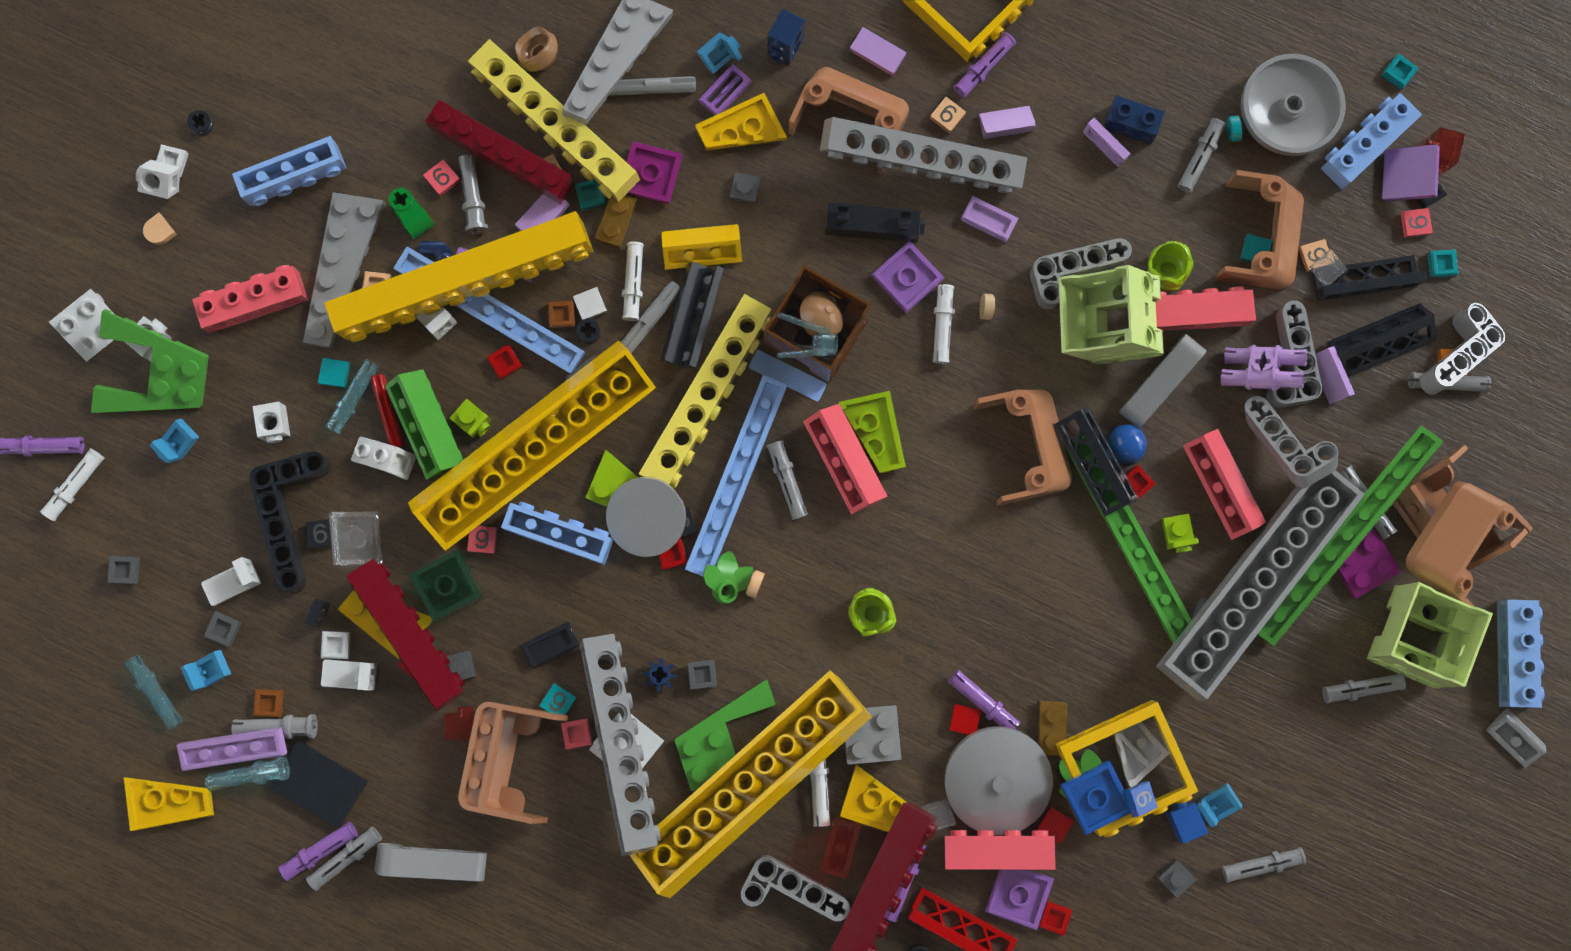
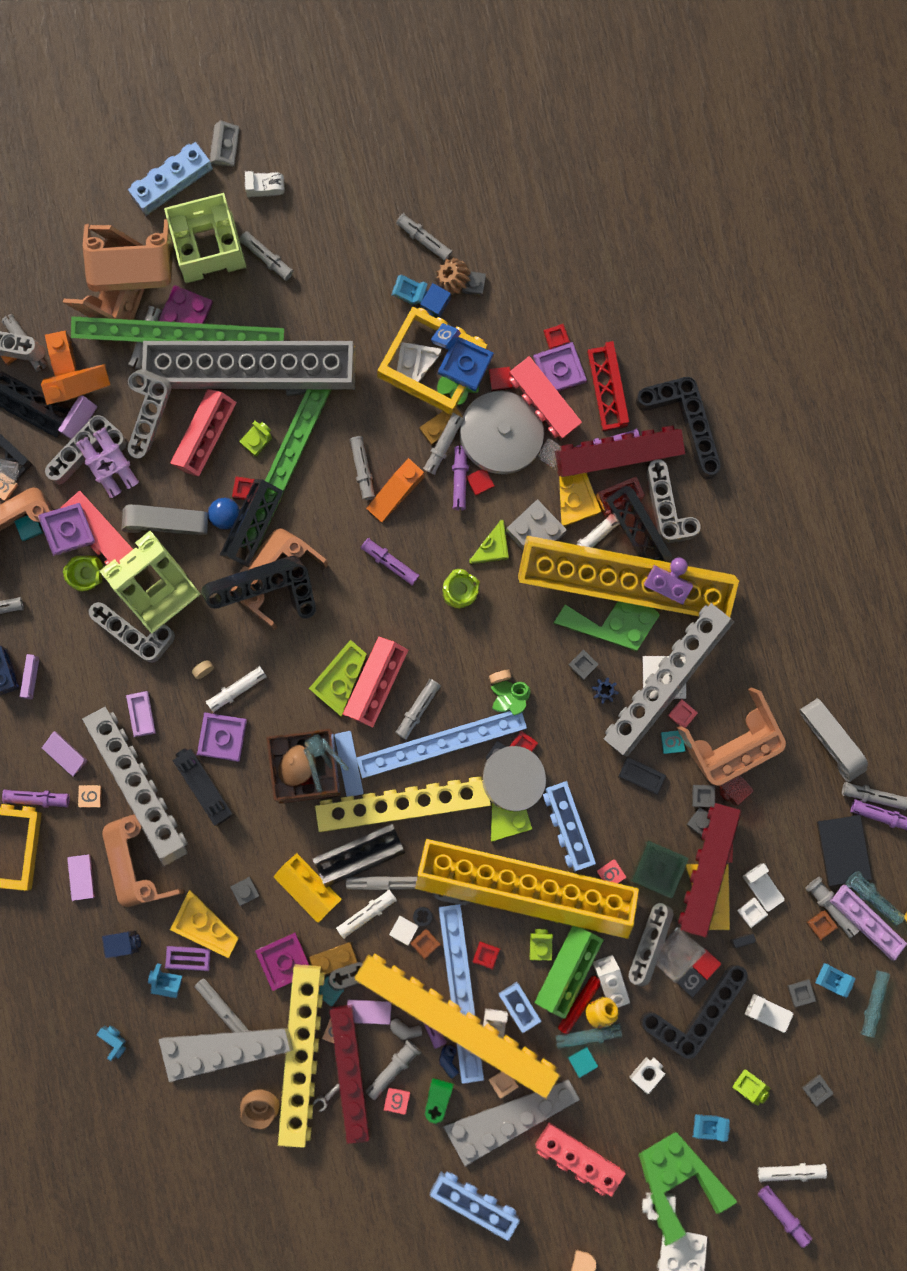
camera: 125 degrees left, 0 degrees up
(178, 509) = (752, 1088): none -> lime bracket
(323, 561) = (706, 965): none -> red tile
(361, 424) = (602, 1012): none -> yellow head
(381, 524) = (654, 945): none -> light grey beam
(430, 352) = (519, 1007): none -> light blue brick
(482, 687) = (703, 795): none -> dark grey plate
(497, 115) = (327, 1097): none -> light grey hand
(499, 231) = (403, 1031): none -> light grey arm
(597, 217) = (341, 972): none -> dark grey beam
(710, 820) = (669, 583): none -> medium lavender plate
(797, 849) = (641, 518): none -> black fence
(888, 680) = (493, 547): none -> lime tile
(954, 566) = (382, 556): none -> medium lavender pin
(1020, 628) = (396, 490): none -> orange slope
(1023, 421) = (265, 584): none -> black beam
(1027, 703) = (443, 443): none -> light grey pin
(1059, 608) = (364, 477): none -> light grey pin
(1199, 860) = (453, 276): none -> medium nougat gear
(1225, 276) = (66, 529): none -> medium lavender tile
(1369, 395) = (74, 384): none -> orange slope
(1397, 402) = (61, 353): none -> orange slope
(1443, 744) = (264, 184): none -> white leg

